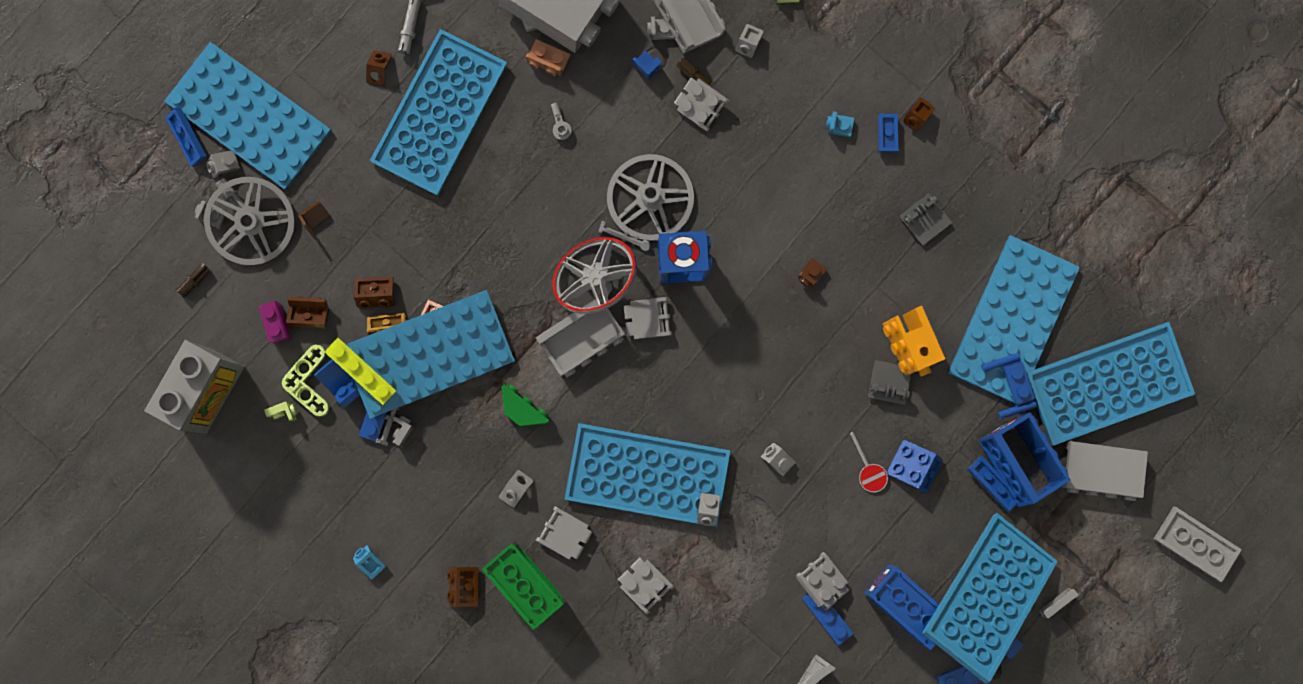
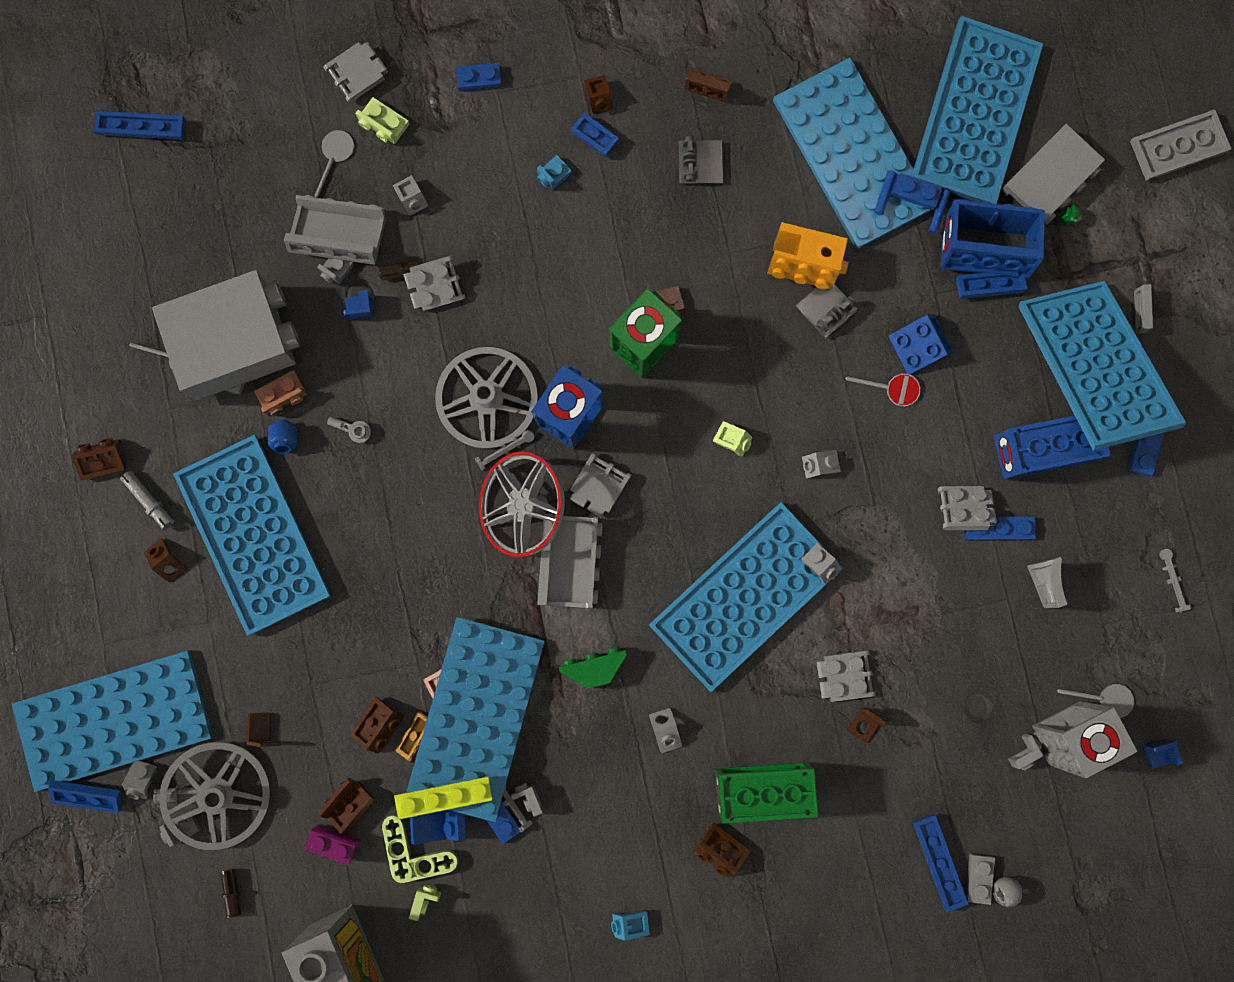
camera: 45 degrees left, 0 degrees up
(519, 82) = (282, 436): none -> blue head
(565, 534) = (744, 716): light grey plate -> none
(629, 625) = (872, 717): none -> reddish brown bracket
(749, 385) = (733, 438): none -> yellowish green bracket
(773, 270) = (645, 332): none -> green hose
(867, 23) = (478, 76): none -> blue plate
(983, 183) = (707, 84): none -> reddish brown bracket
(1086, 503) = (1070, 215): none -> green plate

